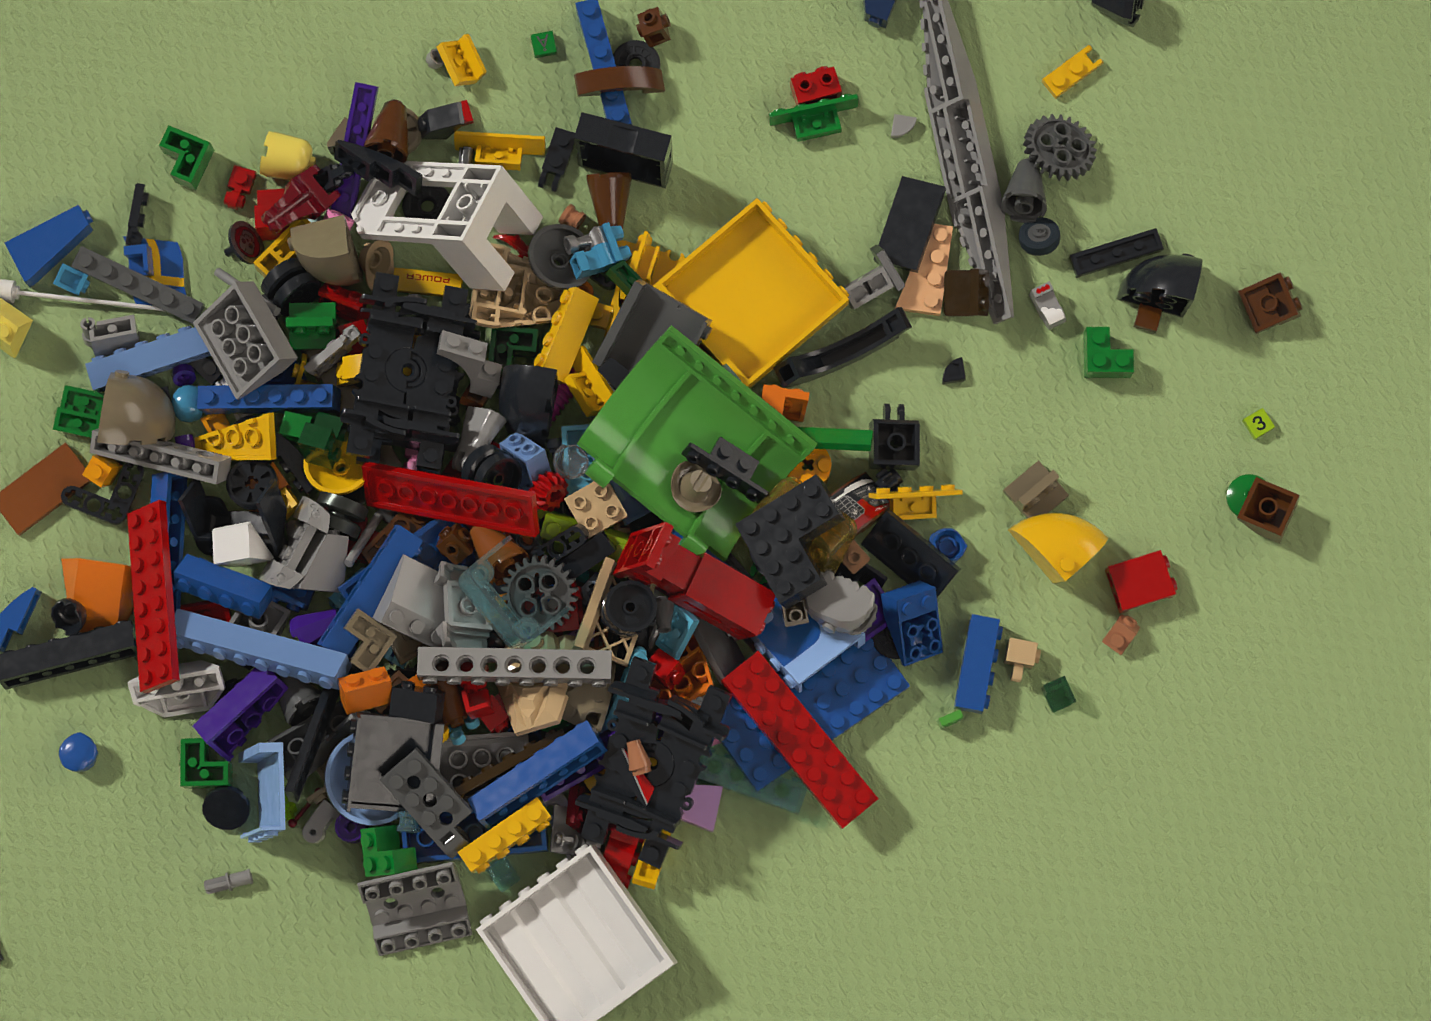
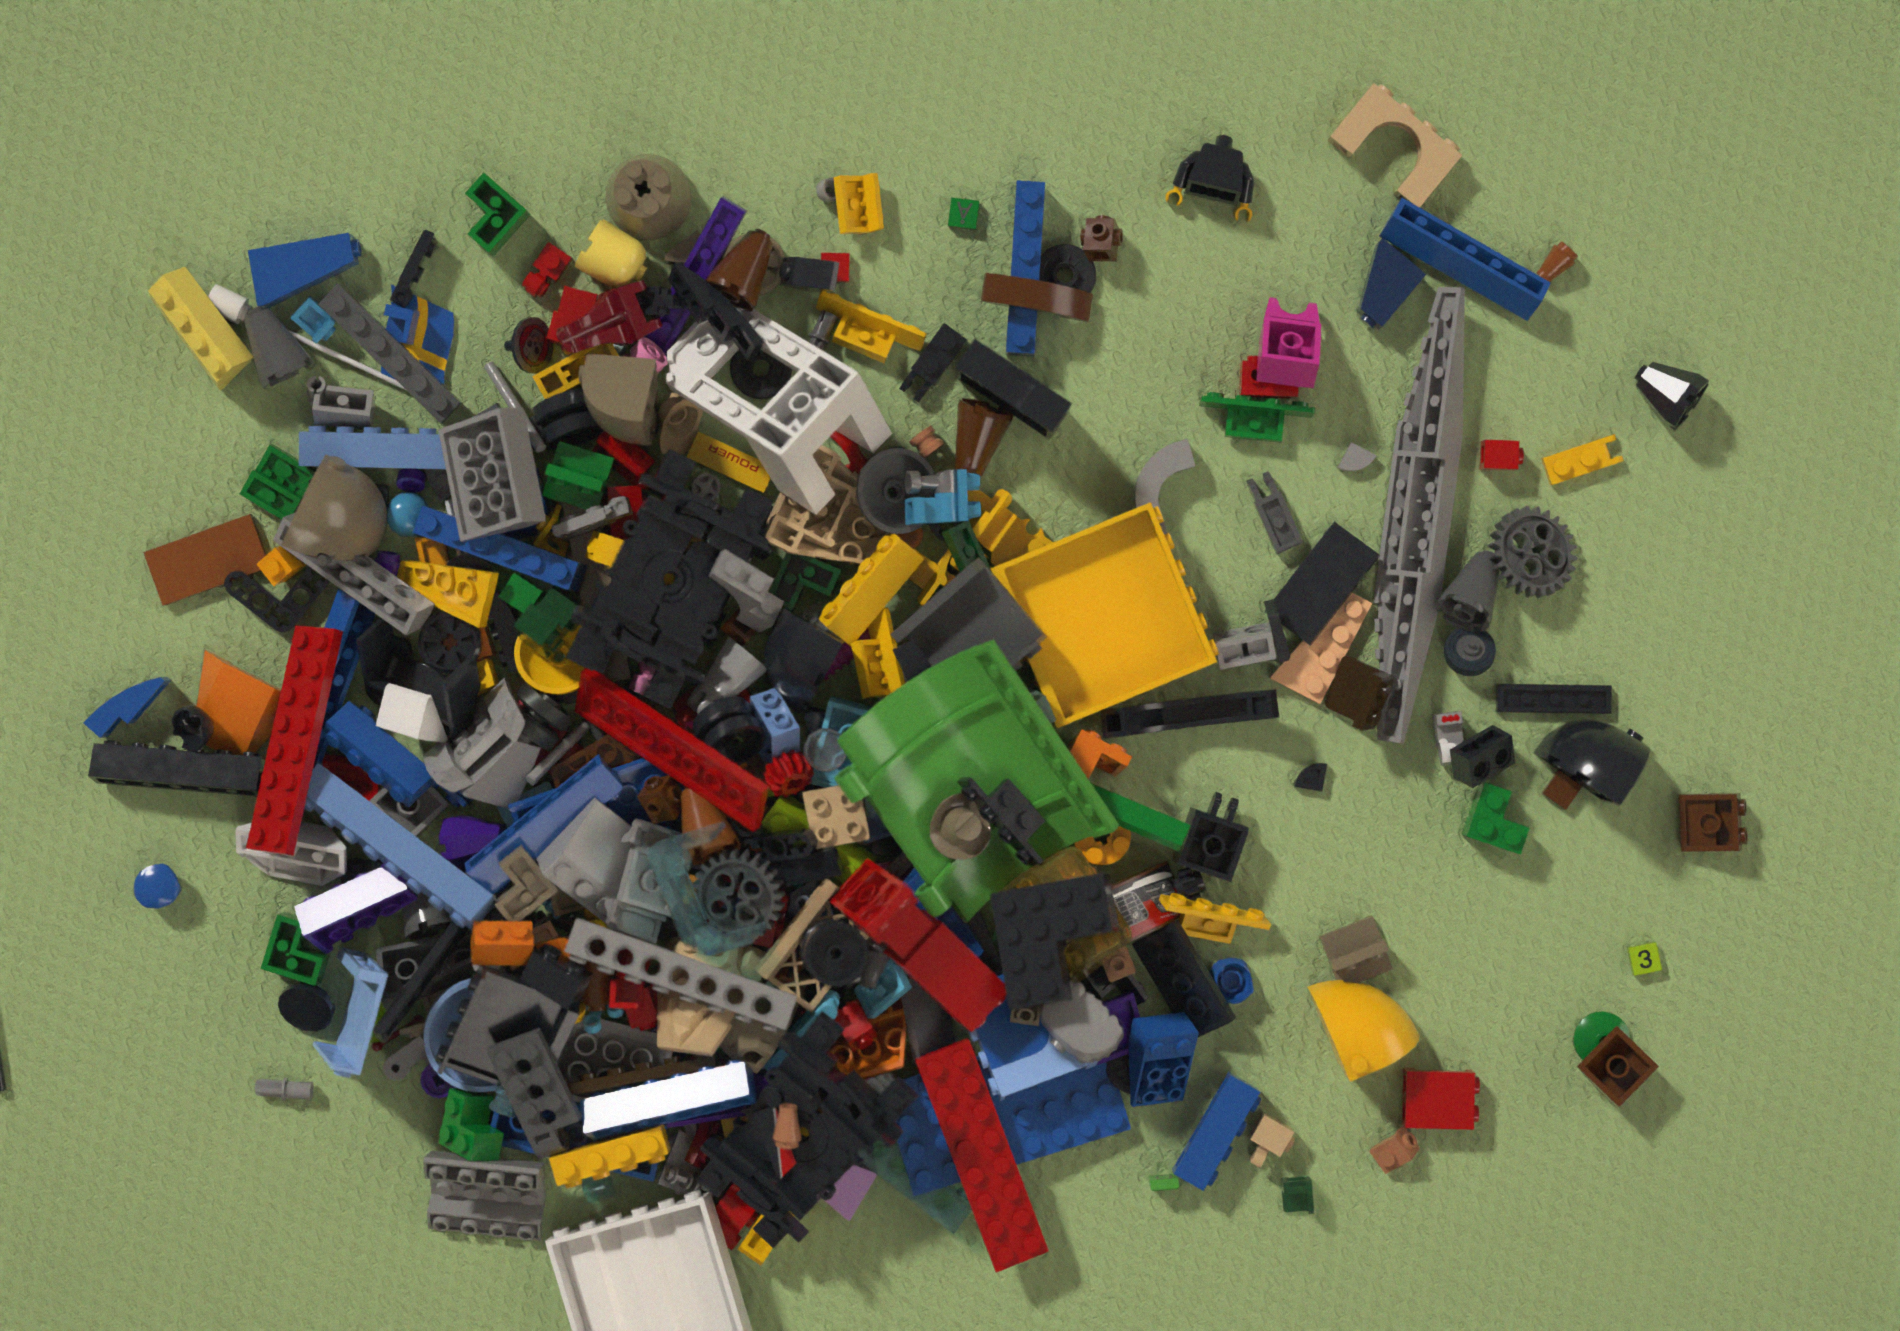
camera: 15 degrees right, 10 degrees up
(47, 309) = (273, 348): none -> dark grey cone
(301, 115) = (654, 213): none -> dark tan cone
(758, 175) = (1158, 468): none -> light grey arch
(822, 54) = (1289, 346): none -> dark pink brick
(856, 186) = (1275, 515): none -> dark grey hinge
(1009, 86) = (1501, 455): none -> red brick
(1077, 309) = (1482, 756): none -> black brick

